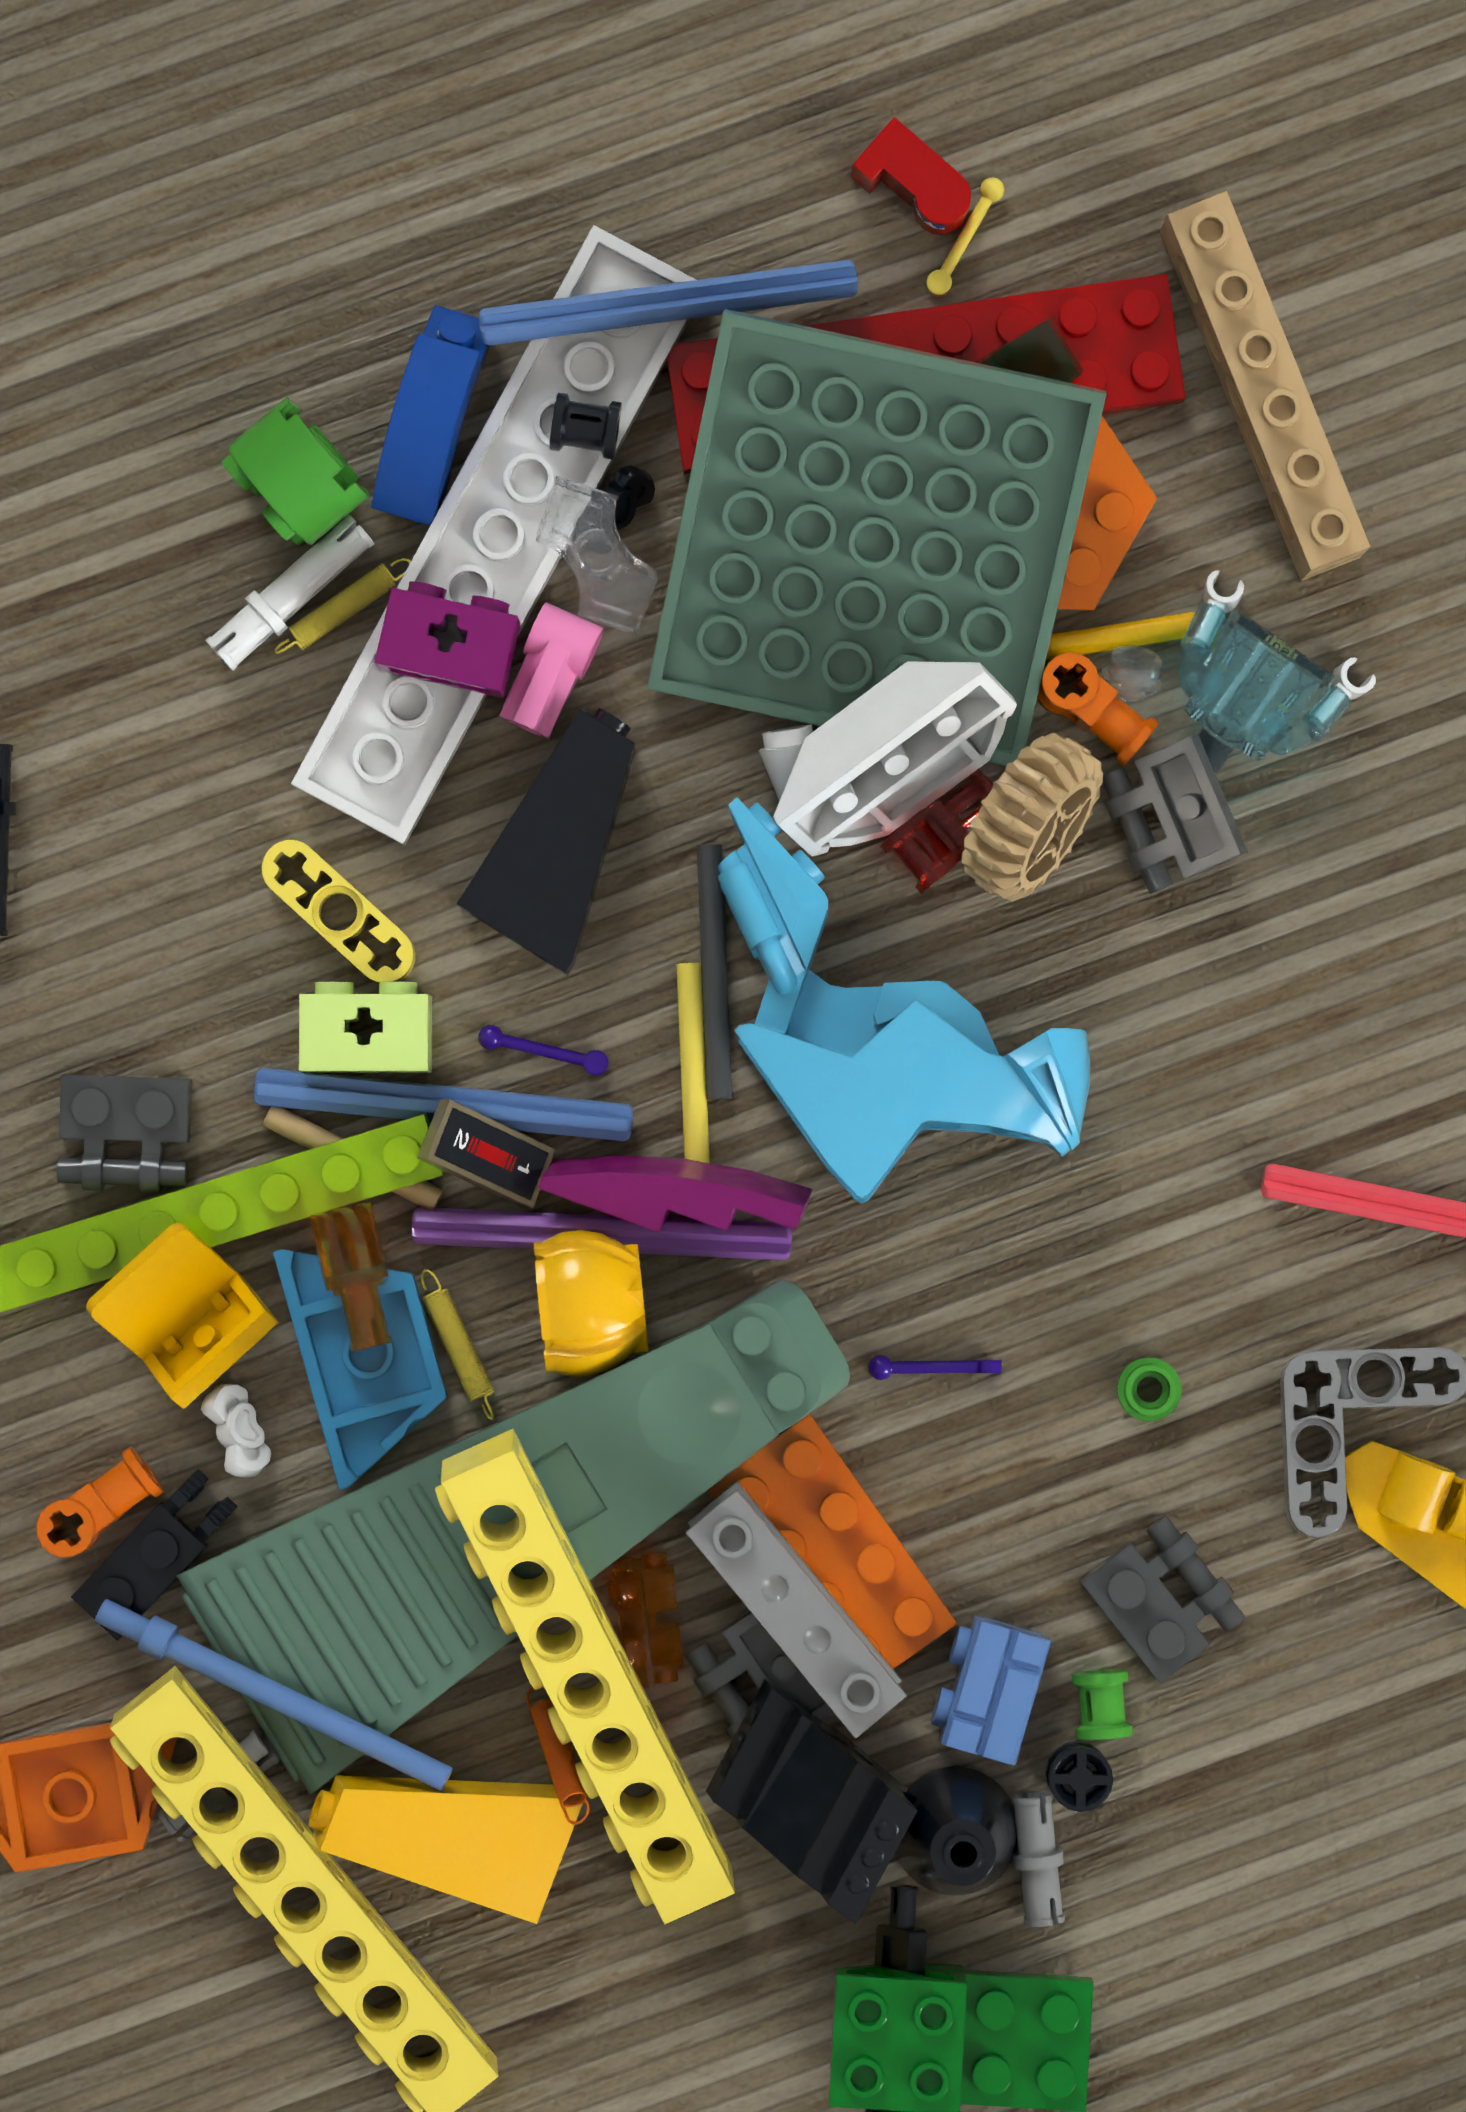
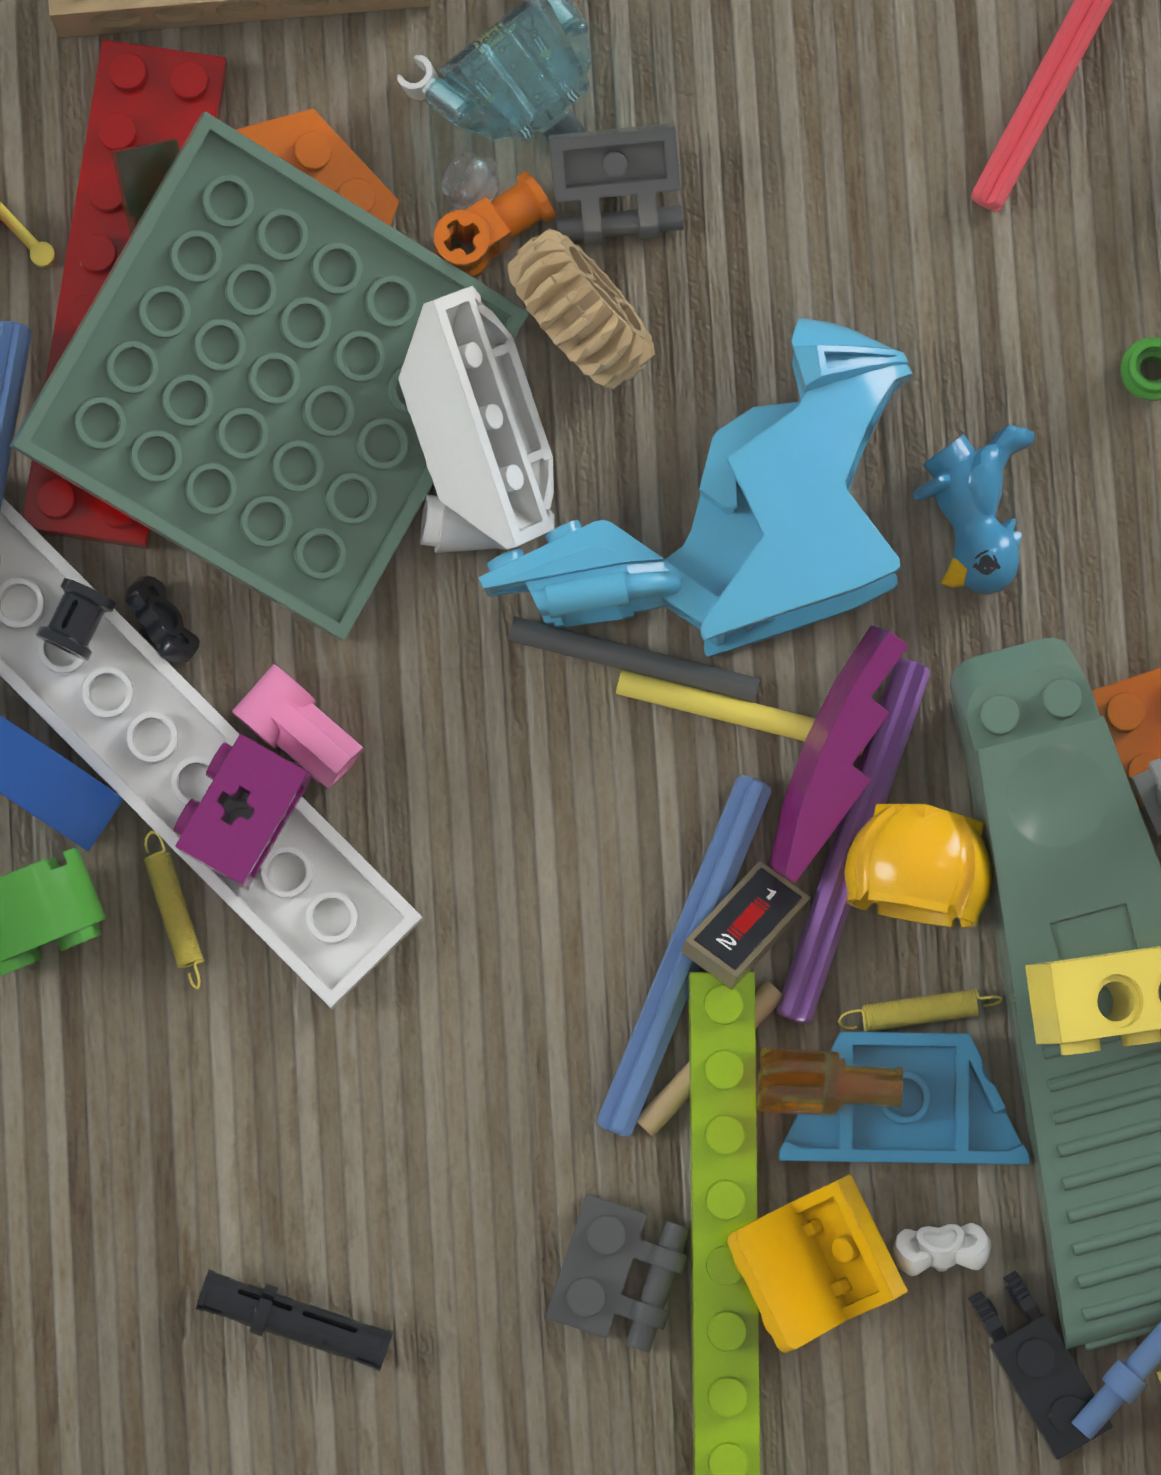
camera: 70 degrees left, 5 degrees down
(98, 1504) = (974, 1403): orange connector -> none
(289, 592) = (146, 959): white pin -> none
(292, 892) = (419, 1013): light yellow beam -> none
(330, 1046) = (618, 978): yellowish green brick -> none
(552, 851) = (474, 777): black slope -> none
(584, 532) = (175, 652): clear tile -> none
(594, 1062) = (686, 800): dark purple hinge -> none
(882, 1367) = (1058, 613): dark purple hinge -> none
(938, 833) = (568, 408): clear red connector -> none
(969, 1245) = (968, 493): none -> dark azure animal
(1121, 634) = (430, 179): yellow bar -> none

